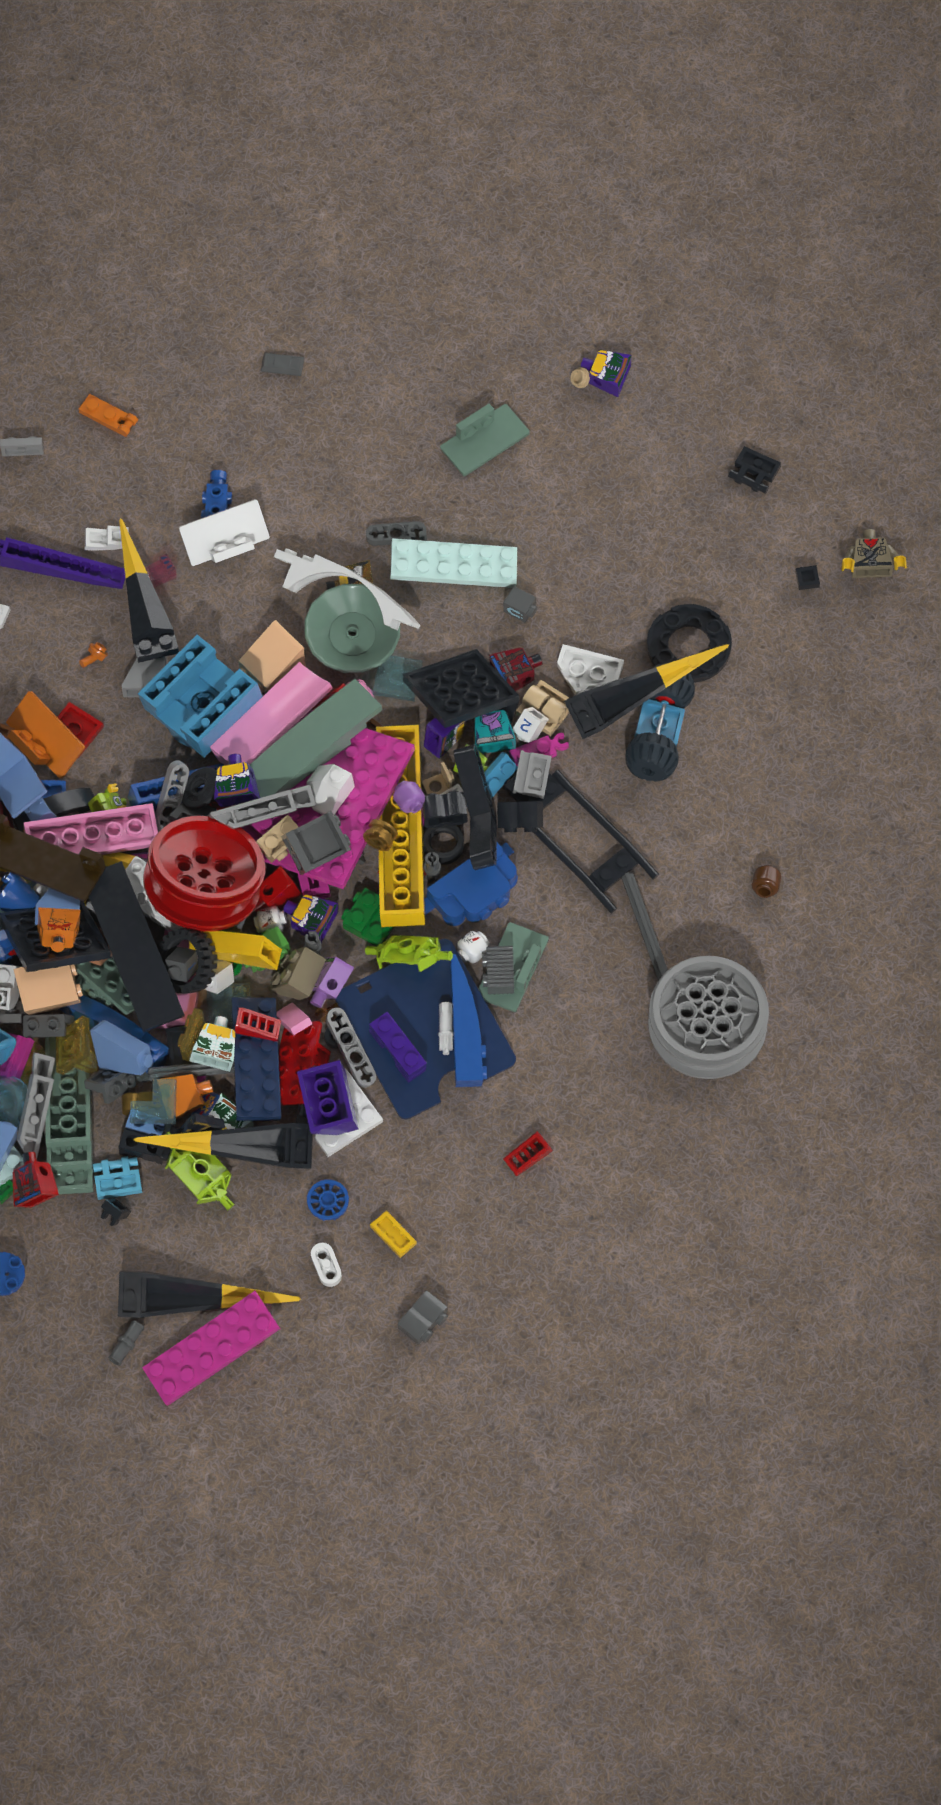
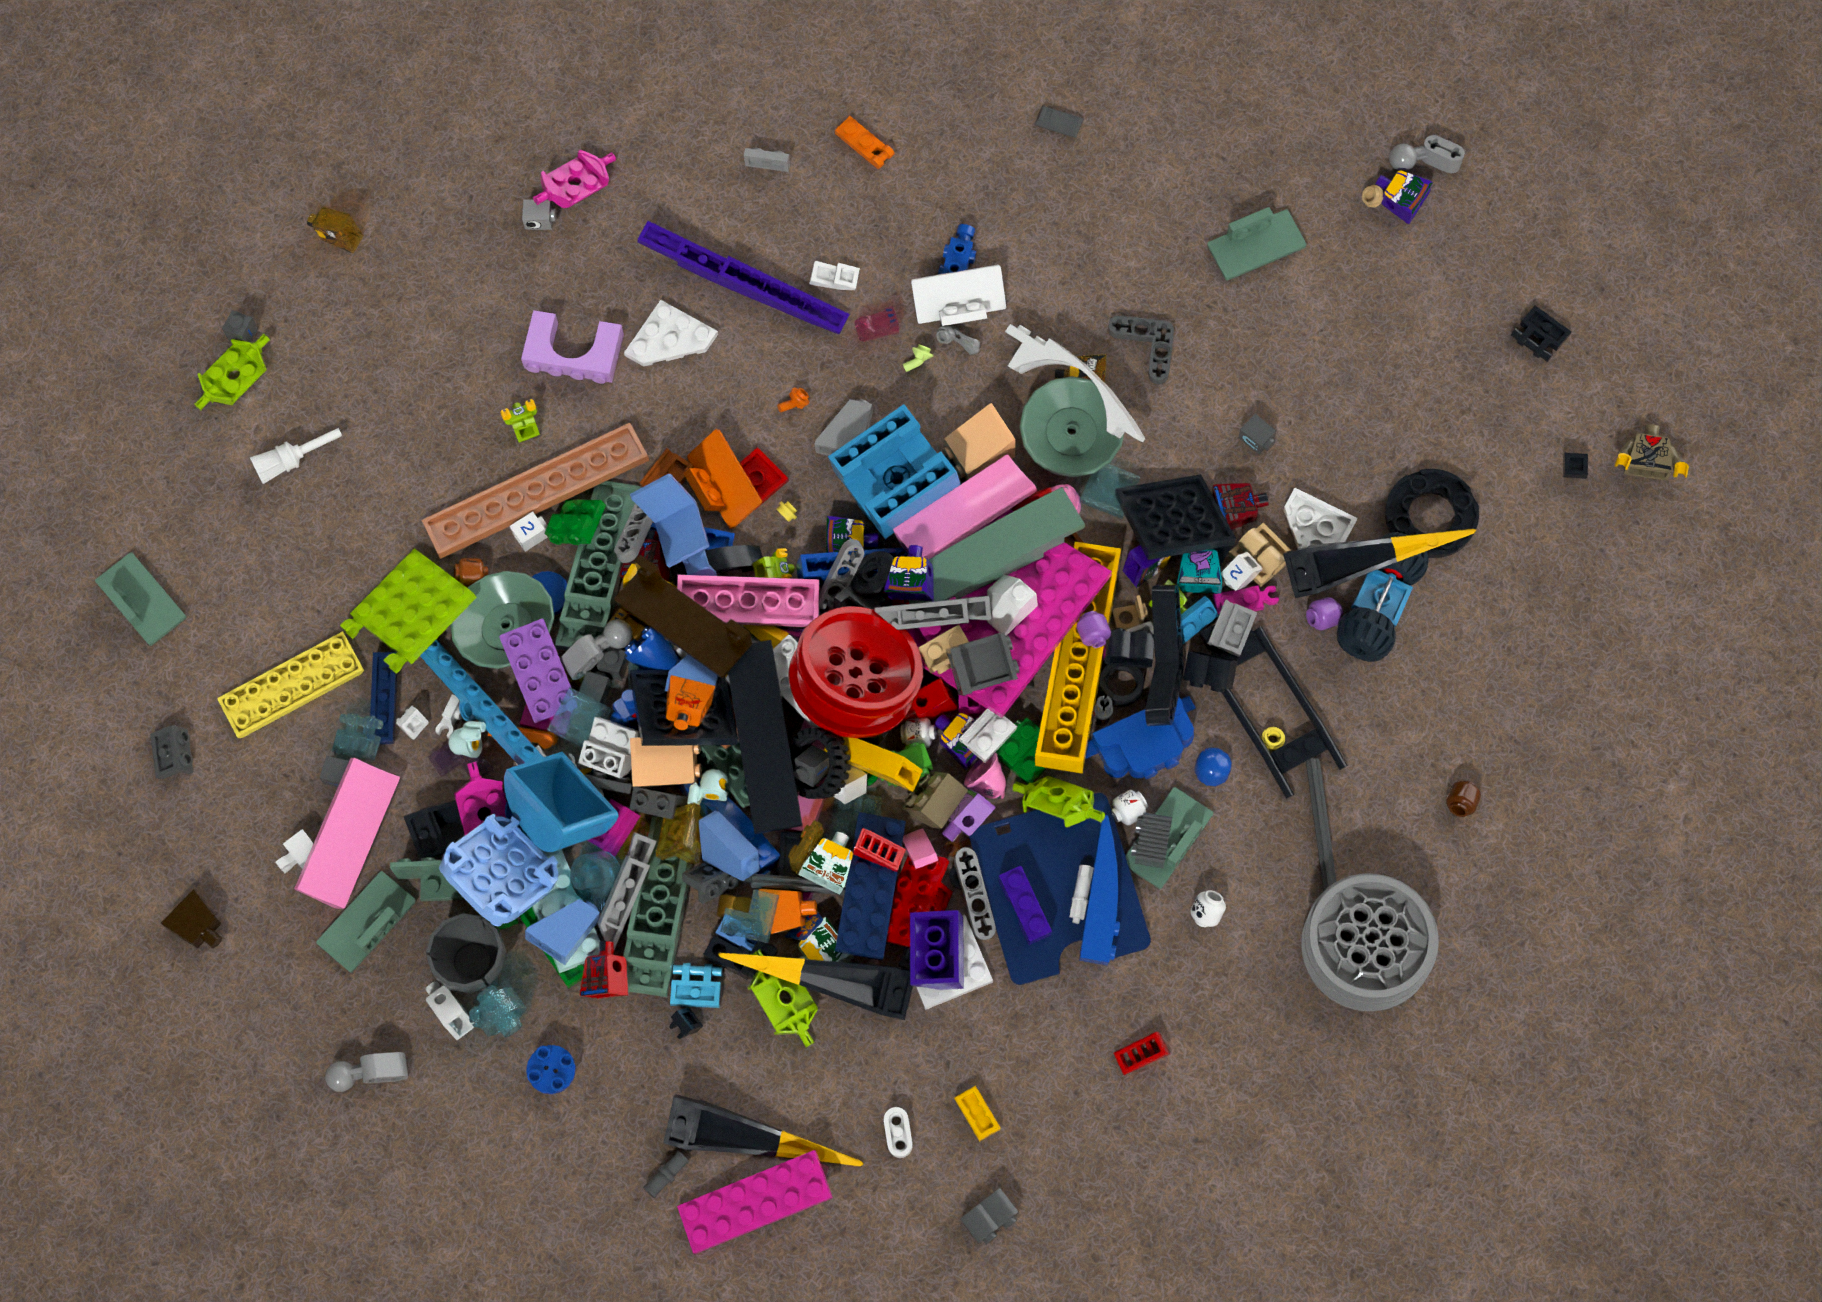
camera: 15 degrees right, 5 degrees up
(94, 1001) = (711, 787): none -> light aqua piece
(109, 752) = (787, 511): none -> light yellow plate
(150, 625) = (858, 377): black plate -> none
(162, 757) = (844, 529): none -> torso
(201, 592) = (921, 353): none -> yellowish green plate
(201, 1123) = (795, 950): black wing -> none
(221, 570) = (949, 332): none -> light grey piece
(313, 942) = (957, 770): dark grey pin -> none
(328, 1200) = (915, 1058): blue wheel -> none
(333, 908) = (987, 734): none -> white plate
(341, 945) = (987, 778): none -> bright pink piece
(380, 835) = (1053, 667): pearl gold wheel -> none
(453, 563) = (1195, 374): light aqua plate -> none
(540, 898) = (1213, 766): none -> blue hair
(560, 1018) = (1208, 908): none -> white head
(591, 859) = (1273, 731): none -> light yellow plate
(611, 747) = (1324, 613): none -> medium lavender head
(628, 329) = (1435, 152): none -> light grey beam

